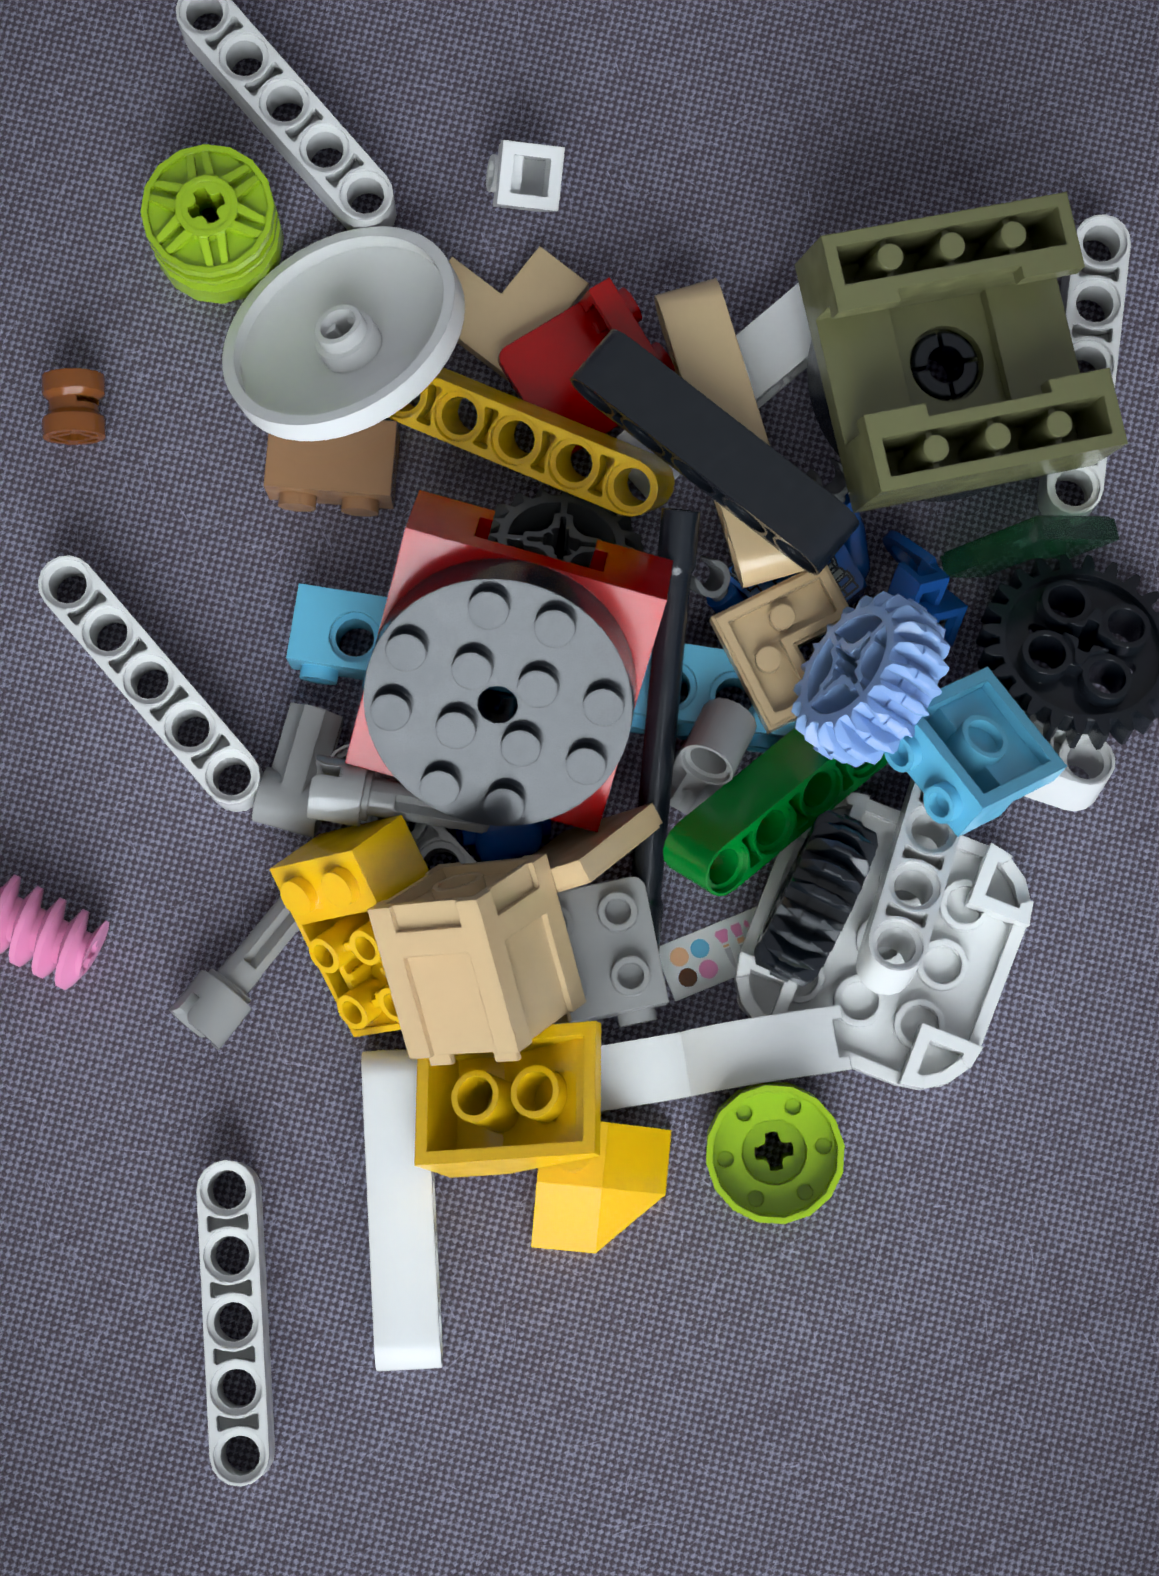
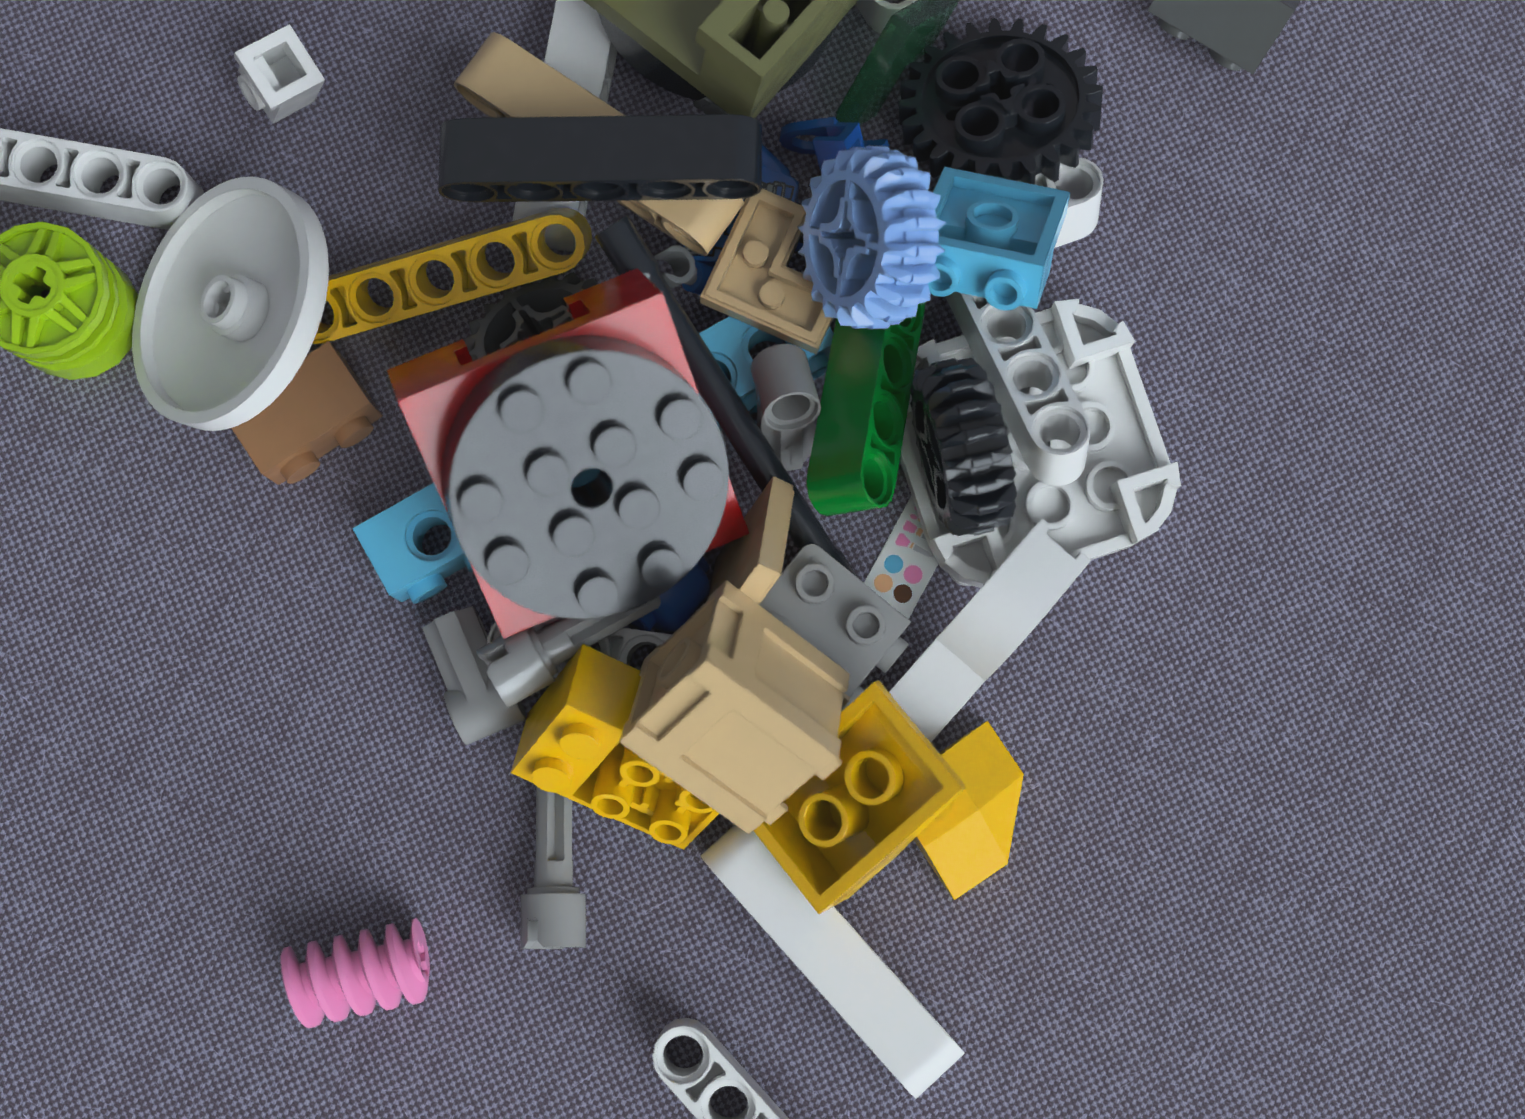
camera: 40 degrees left, 0 degrees up
(73, 406) = (59, 533): dark orange wheel -> none
(135, 658) = (268, 694): white beam -> none
(532, 298) = (363, 201): tan tile -> none
(549, 355) = (408, 204): red bracket -> none
(805, 1174) = (1123, 671): lime wheel -> none

